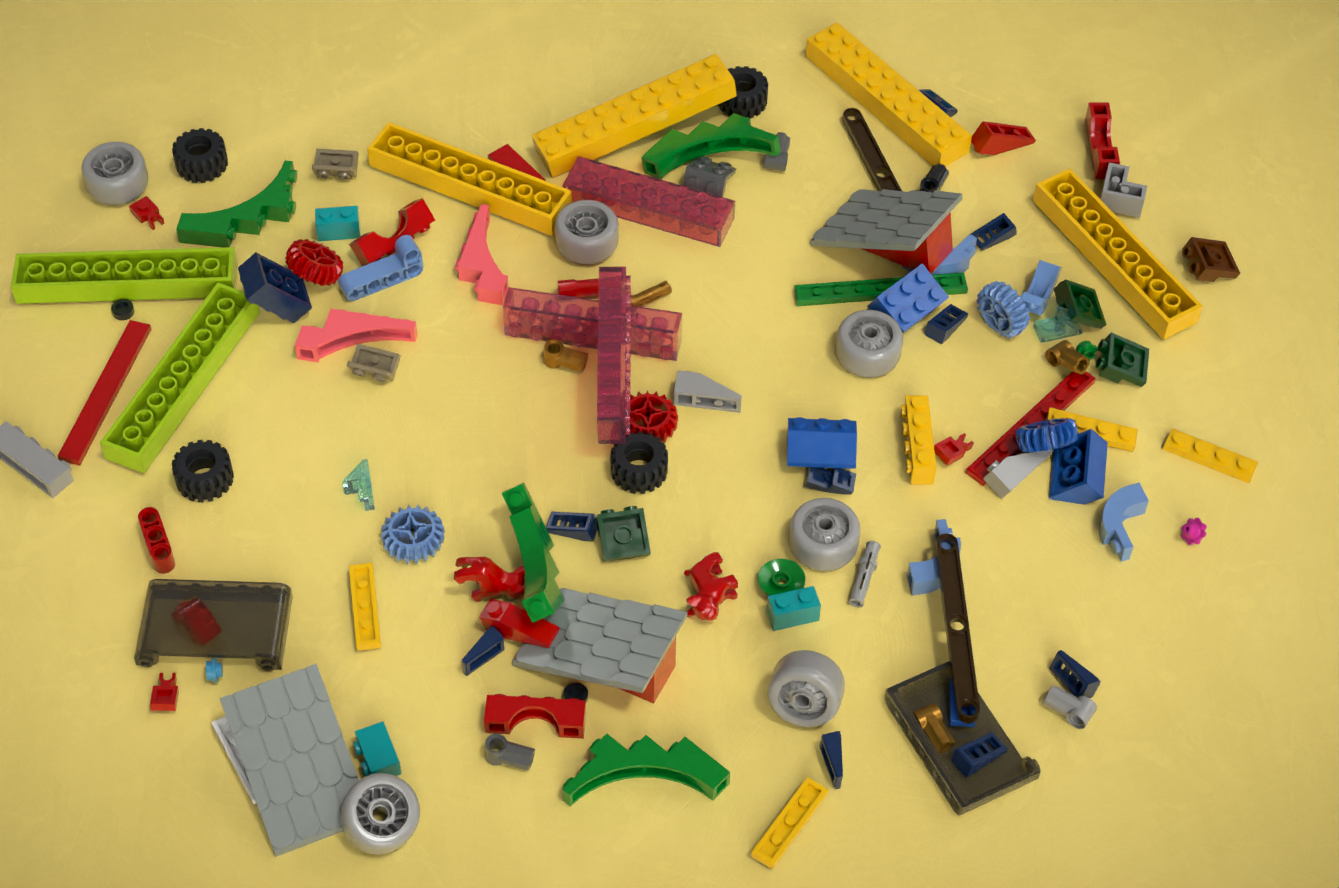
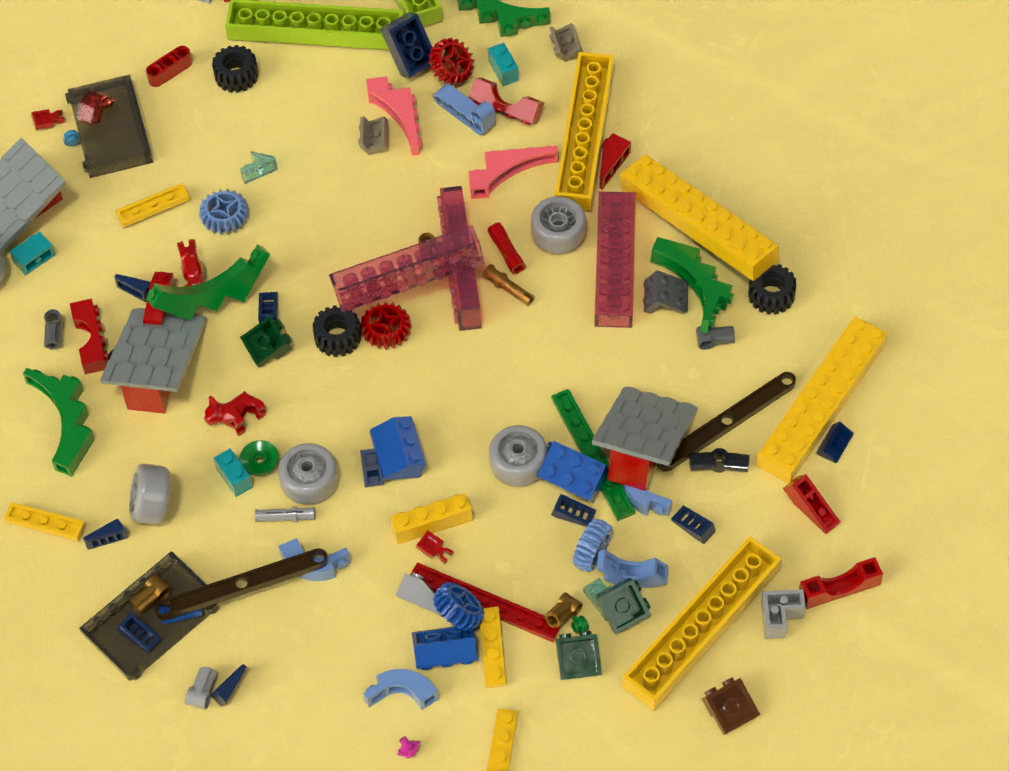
camera: 75 degrees right, 5 degrees up
(702, 392) = (426, 352): light grey slope -> none

